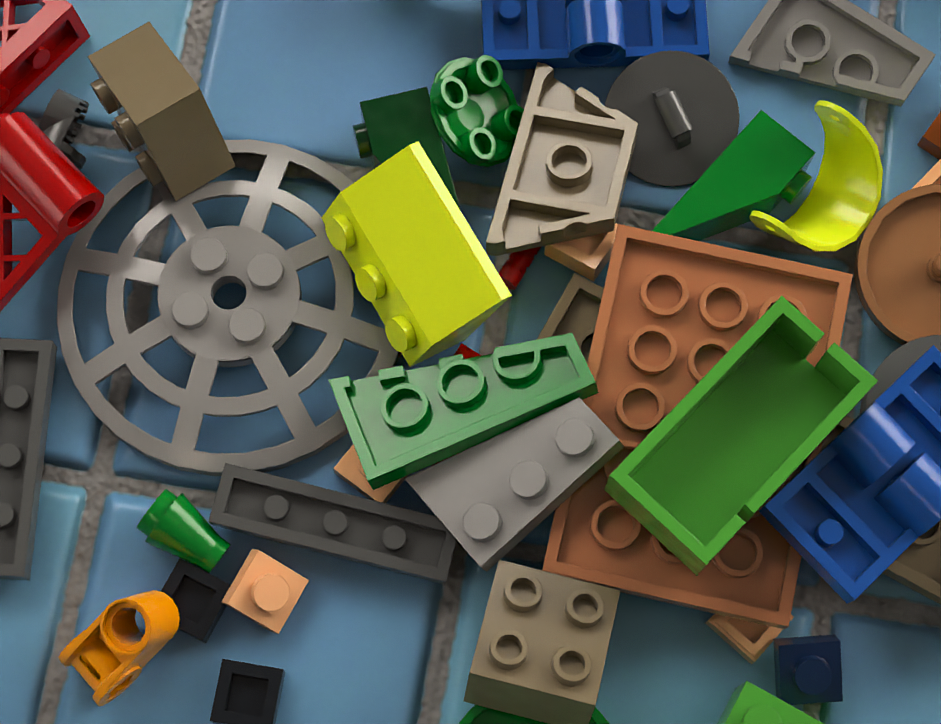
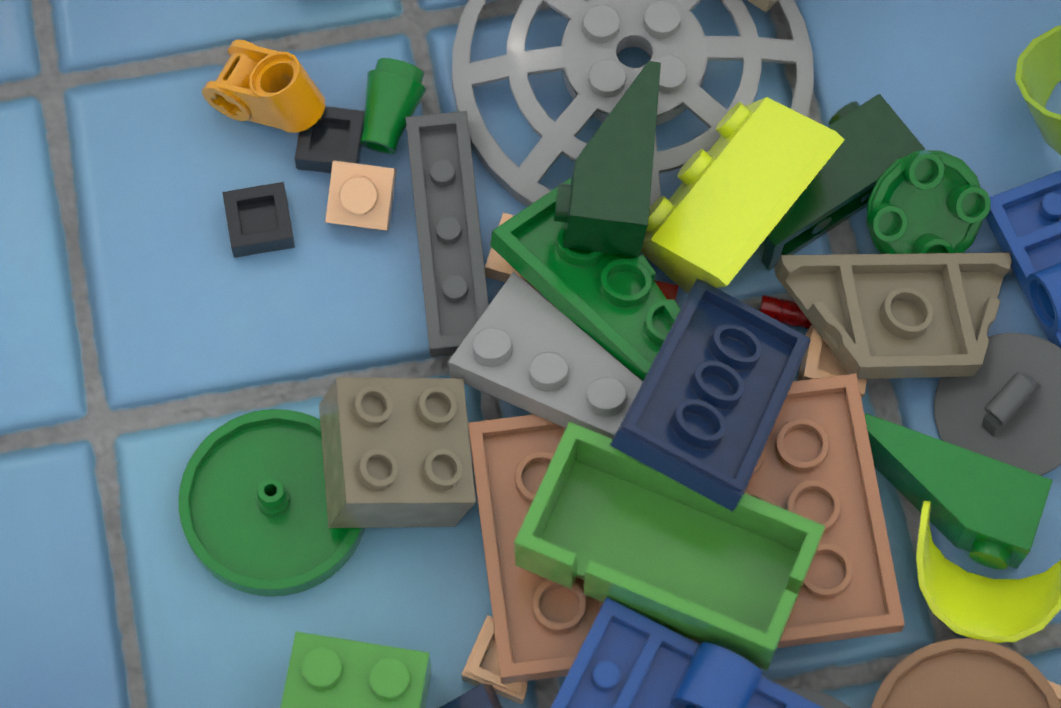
camera: 70 degrees right, 5 degrees down
(371, 356) = (612, 176): none -> dark green slope
(618, 345) = (712, 395): none -> dark blue tile

